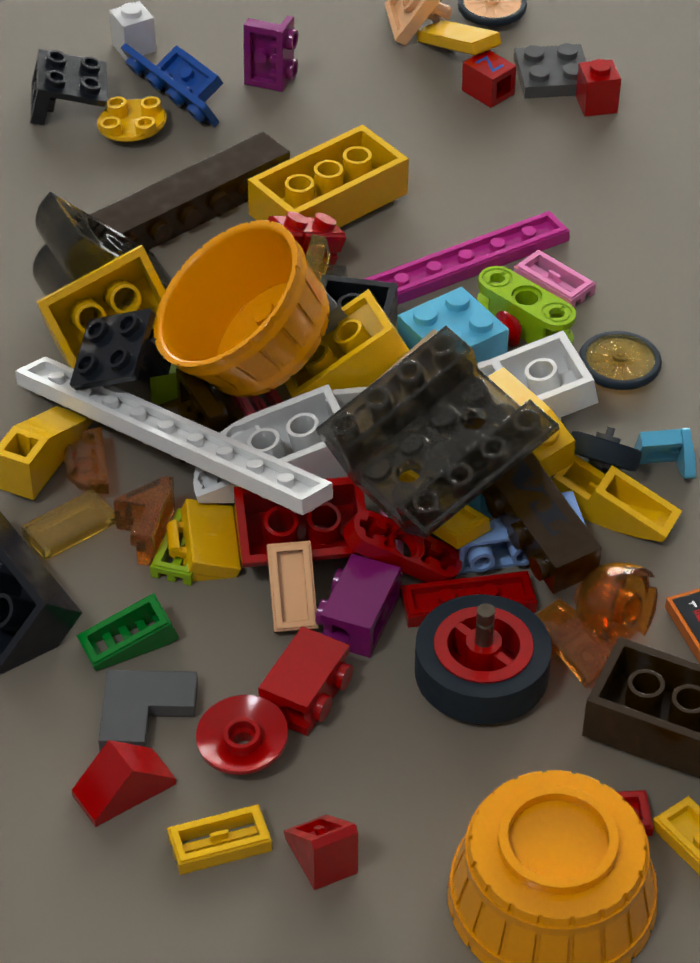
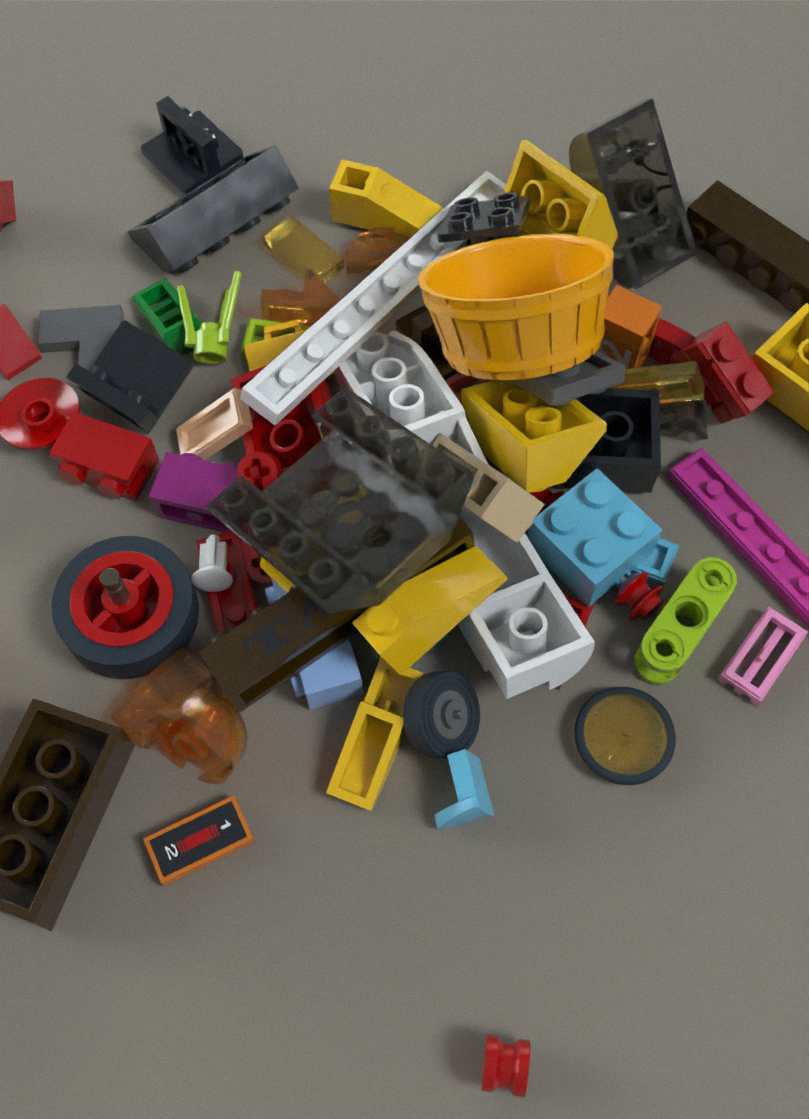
camera: 85 degrees right, 20 degrees up
(180, 589) = (212, 338): none -> lime plant
(217, 650) = (133, 376): none -> black bracket
(442, 590) = (212, 566): none -> white piece

